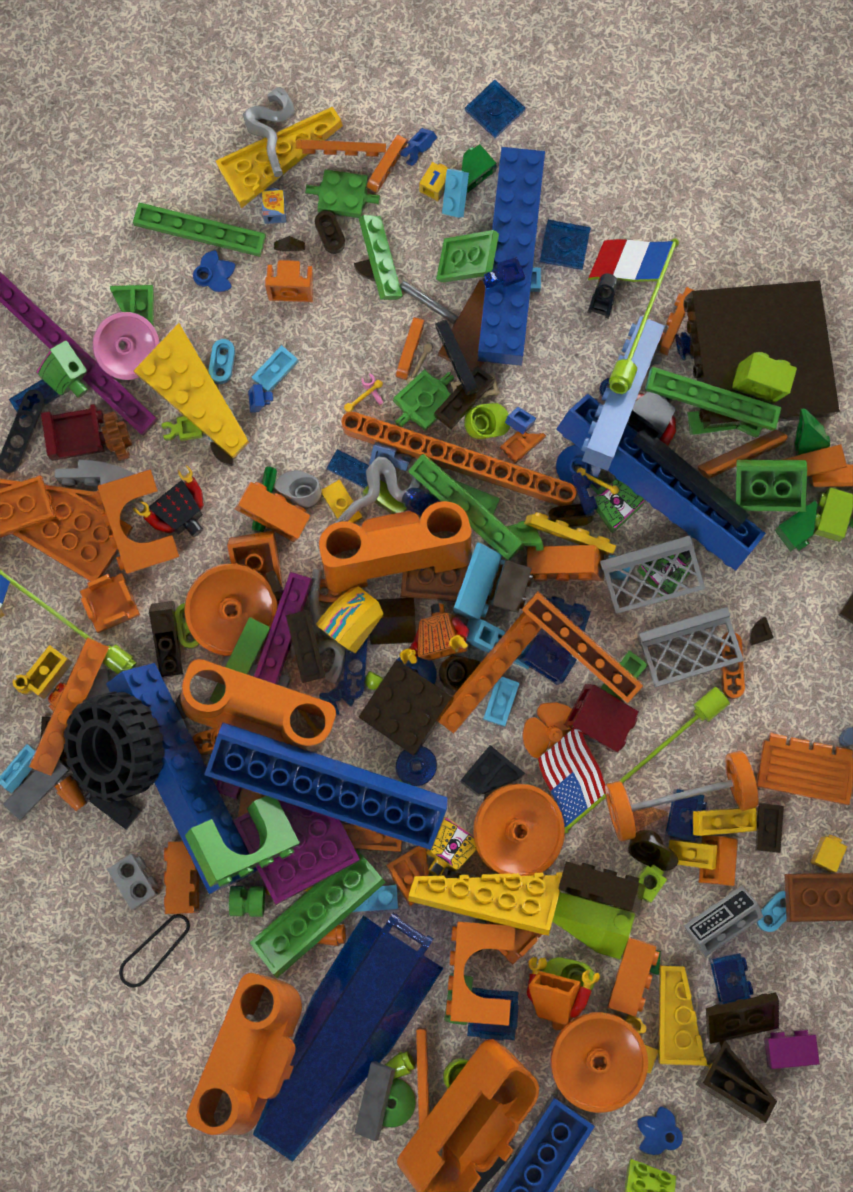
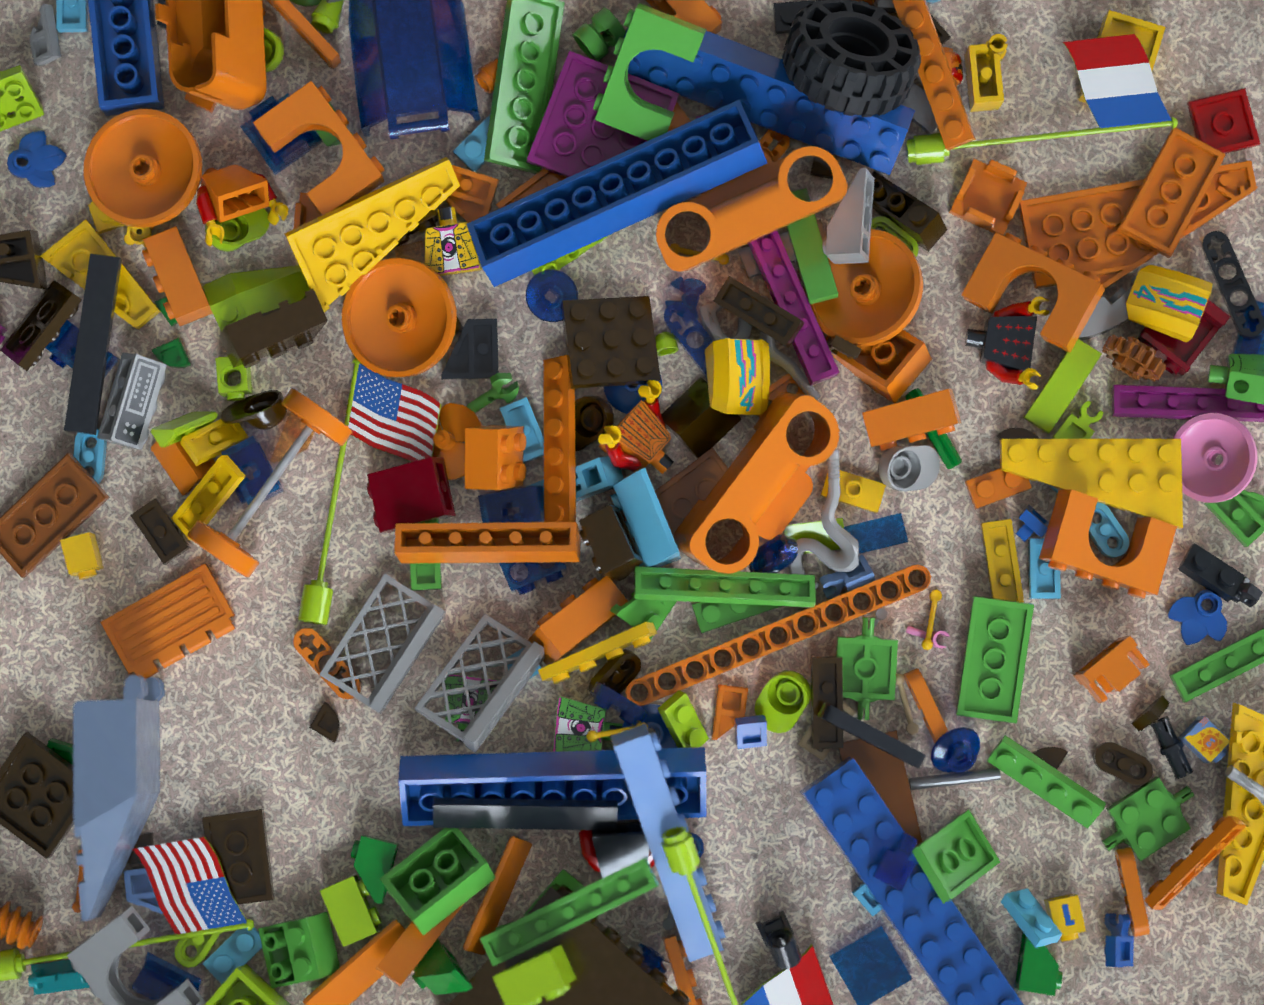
camera: 140 degrees right, 5 degrees up
(66, 448) = (1168, 301): none -> yellow slope
(171, 457) = (1062, 386): none -> lime slope
(183, 284) = (1218, 576): none -> black hinge
(209, 646) = (851, 225): none -> light grey slope
(225, 323) = (1069, 547): none -> orange arch
(260, 437) = (995, 487): none -> orange plate
(295, 217) = (1171, 747): none -> black pin
(296, 390) = (1002, 560): none -> yellow plate
(348, 343) = (994, 659): none -> bright green plate
(415, 312) = (956, 750): none -> clear blue piece
(492, 738) = (496, 392): none -> bright green bar
(534, 695) = (494, 457): none -> orange brick
(555, 455) = (683, 721): none -> lime plate
(674, 932) = (172, 354): none -> green tile
(705, 878) = (174, 430): none -> lime slope
(720, 975) = (93, 344): none -> black tile

